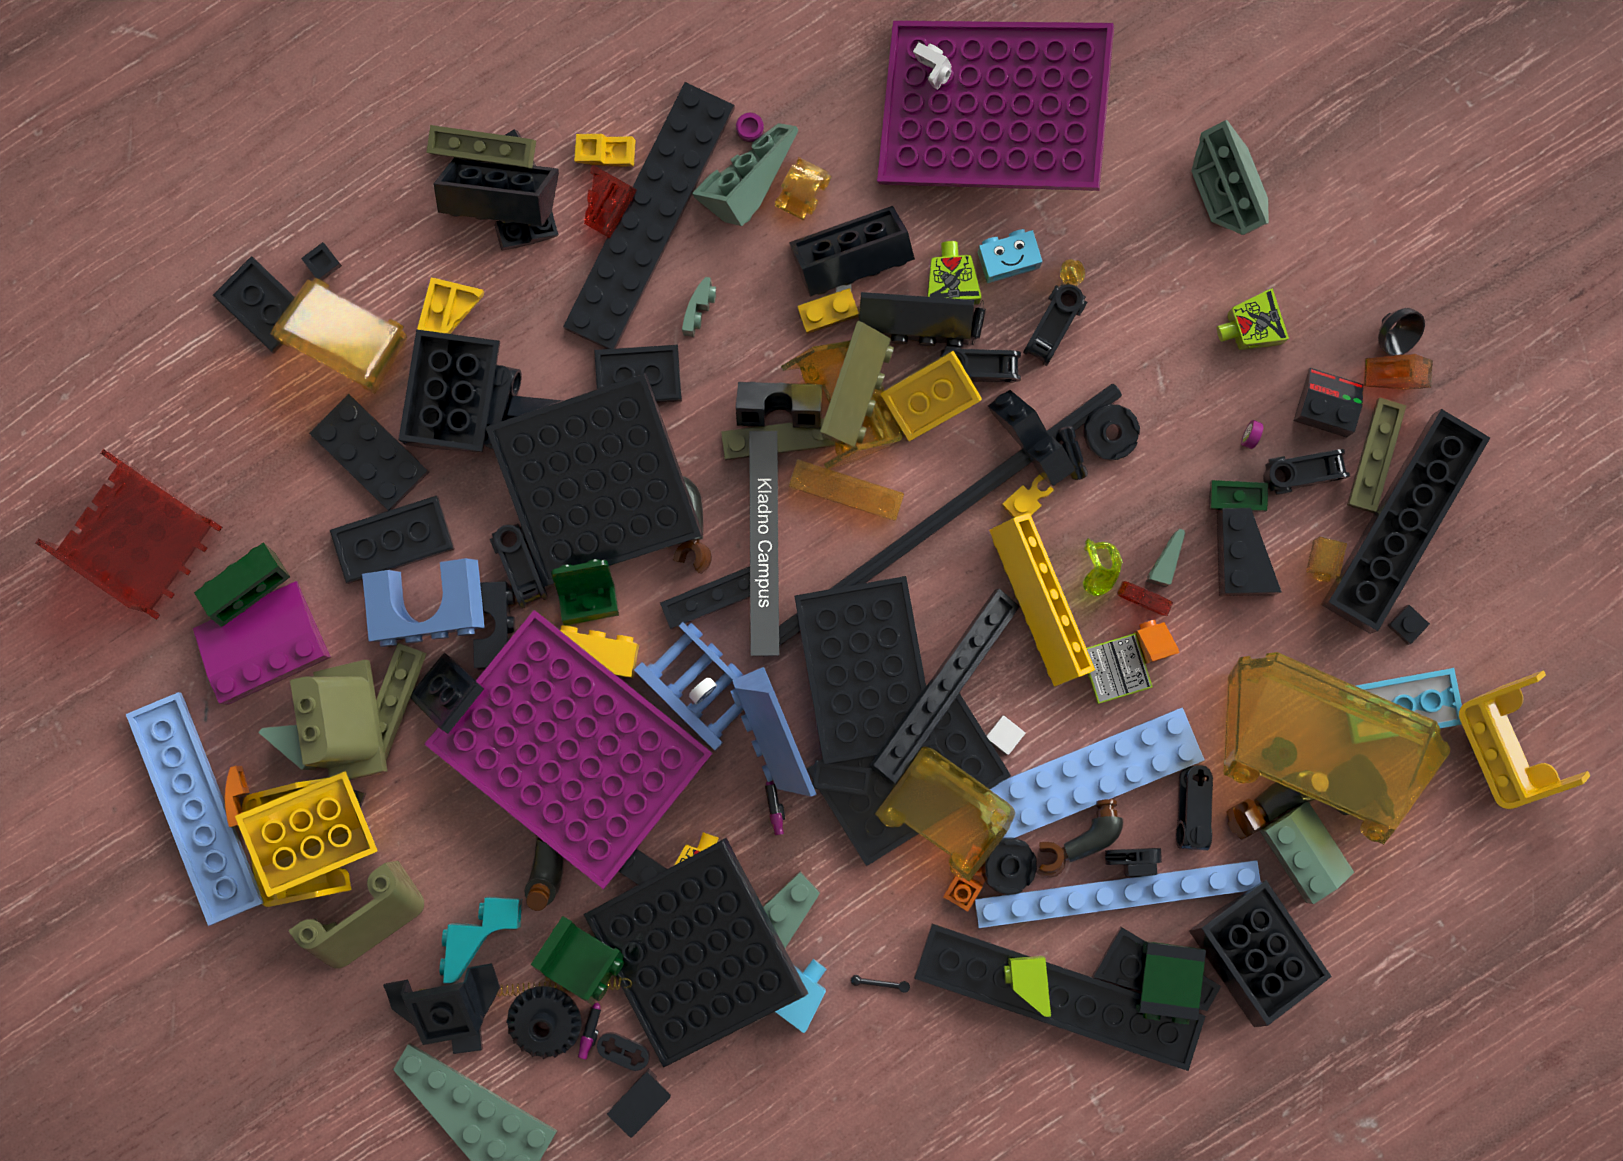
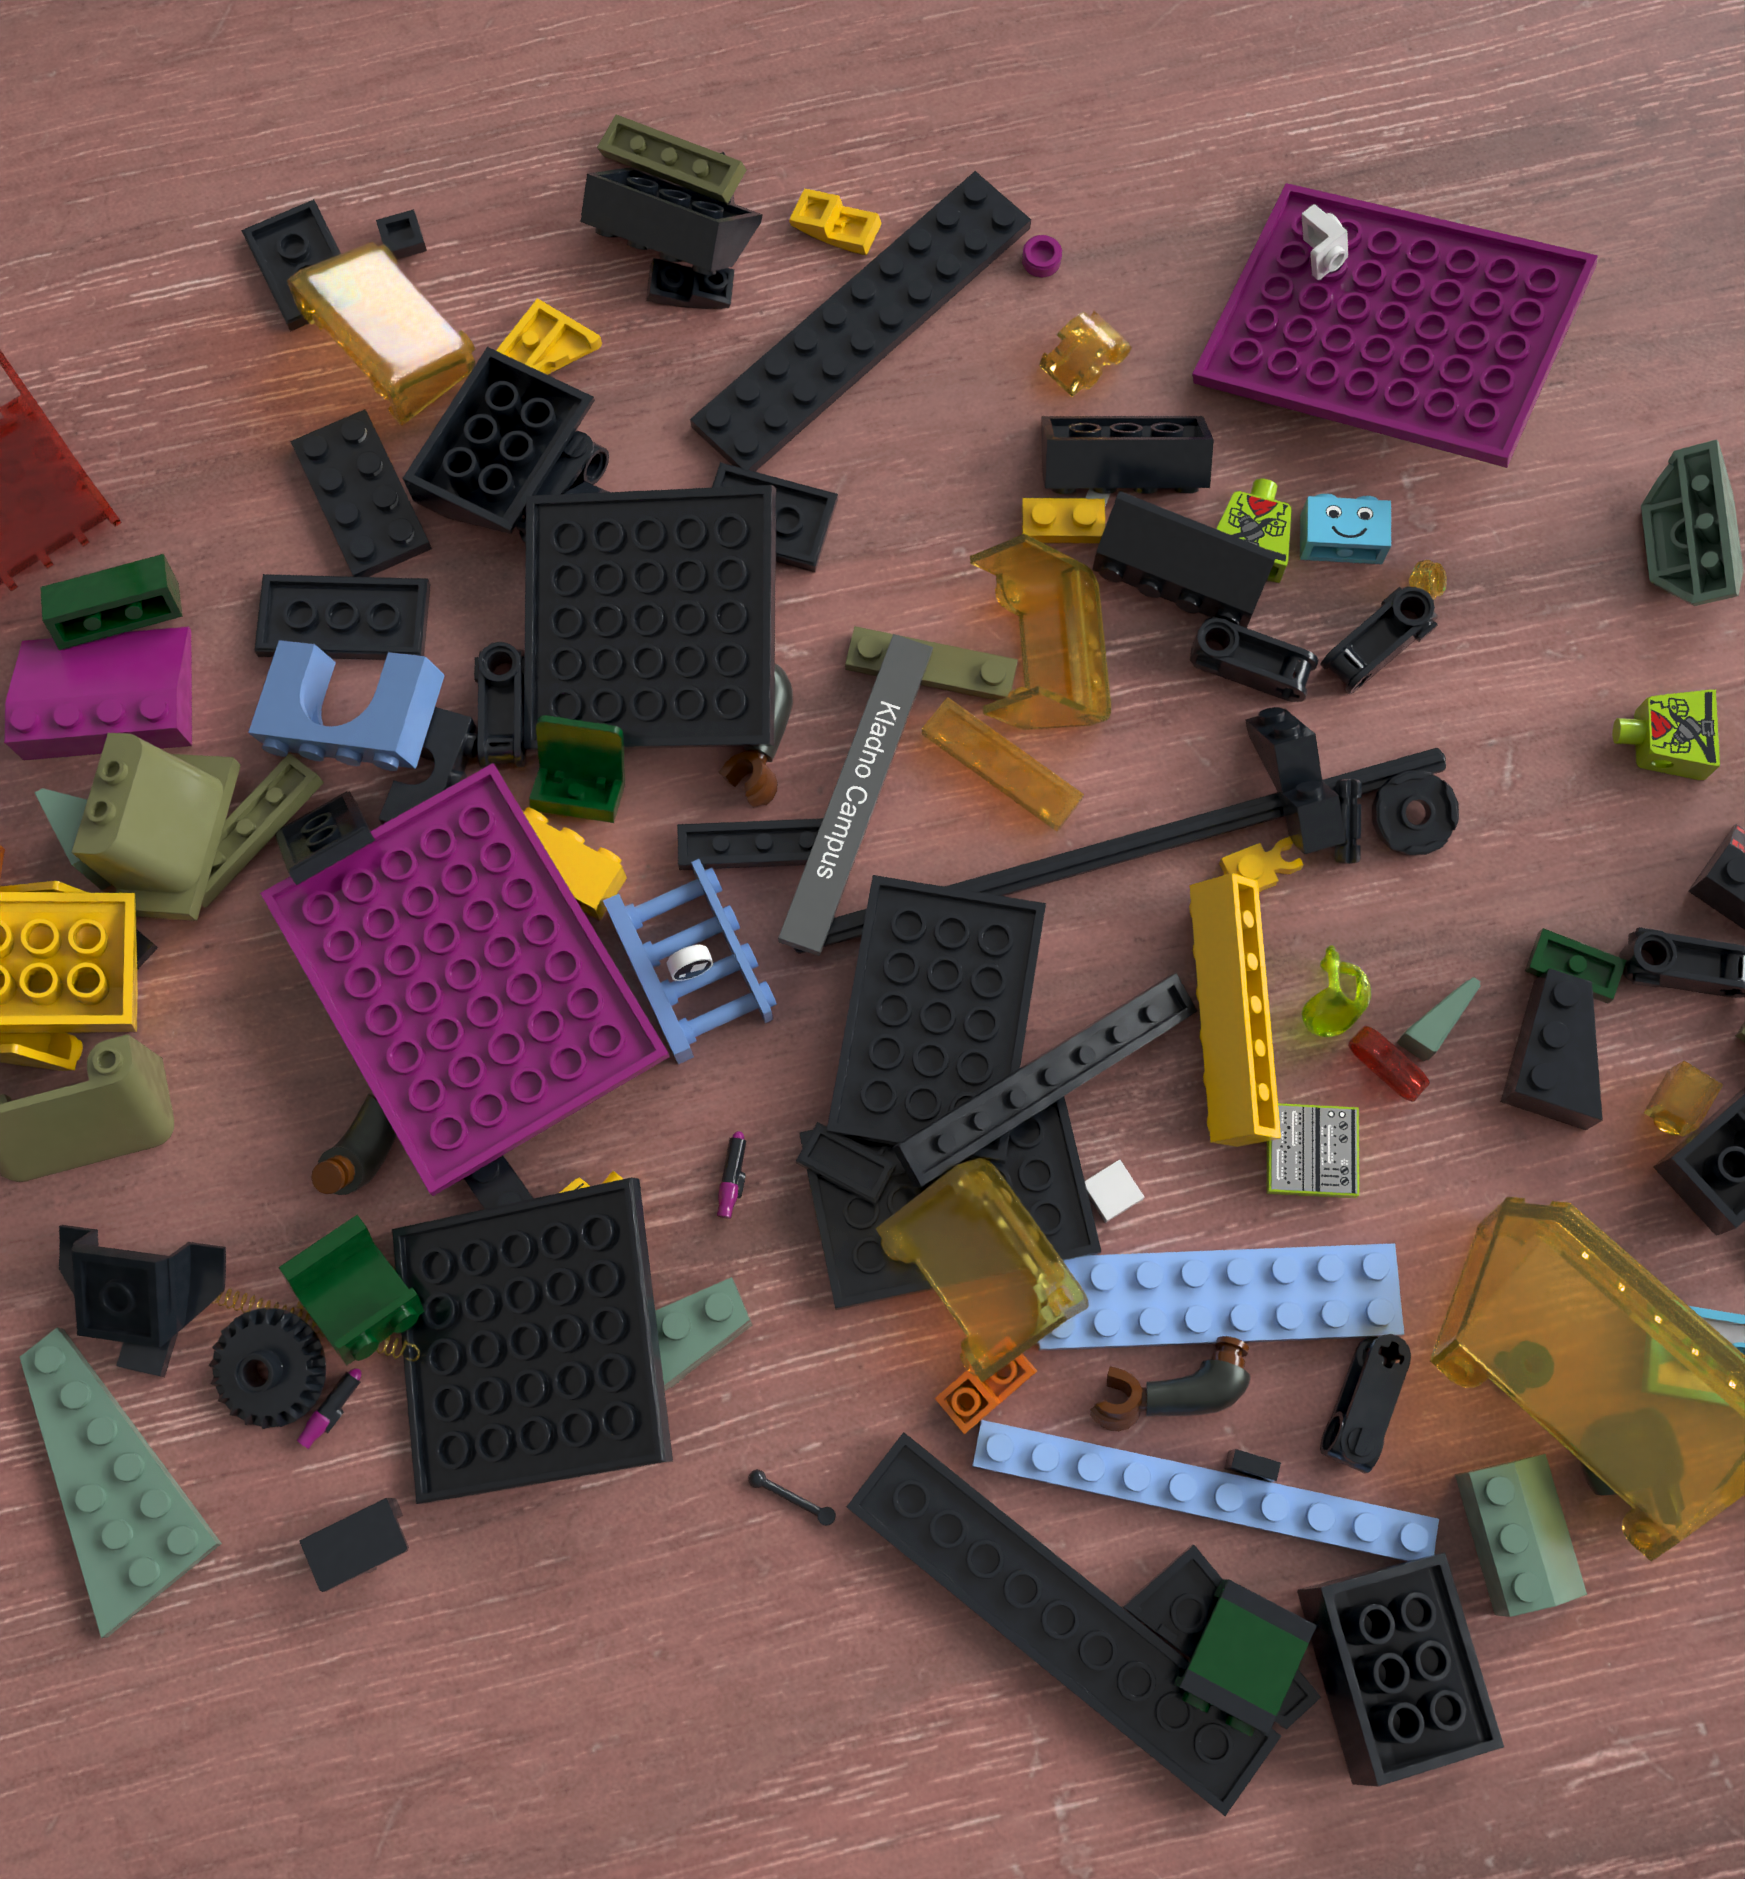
camera: 20 degrees right, 10 degrees down
(465, 940) = (203, 1205): teal arch -> none
(607, 201) = (812, 282): clear red wing -> none
(626, 1045) = (359, 1465): black beam -> none
(700, 300) = (885, 449): sand green slope -> none
(743, 185) = (1002, 325): sand green wedge -> none
(759, 399) = (922, 600): arch -> none
(771, 733) = (766, 1055): medium blue slope -> none
(802, 1011) = (660, 1487): medium azure torso -> none
(856, 385) = (1066, 606): olive slope -> none
(931, 396) = (1169, 671): yellow plate -> none
(977, 322) = (1269, 604): black piece -> none
(1010, 866) = (1051, 1387): black tile -> none
(1030, 981) = (1022, 1575): lime slope -> none
(1133, 856) = (1235, 1436): black piece -> none
(1155, 641) = (1386, 1131): orange slope -> none
(1251, 815) = (1501, 1434): piece -> none
(1252, 434) = (1622, 885): magenta tile -> none

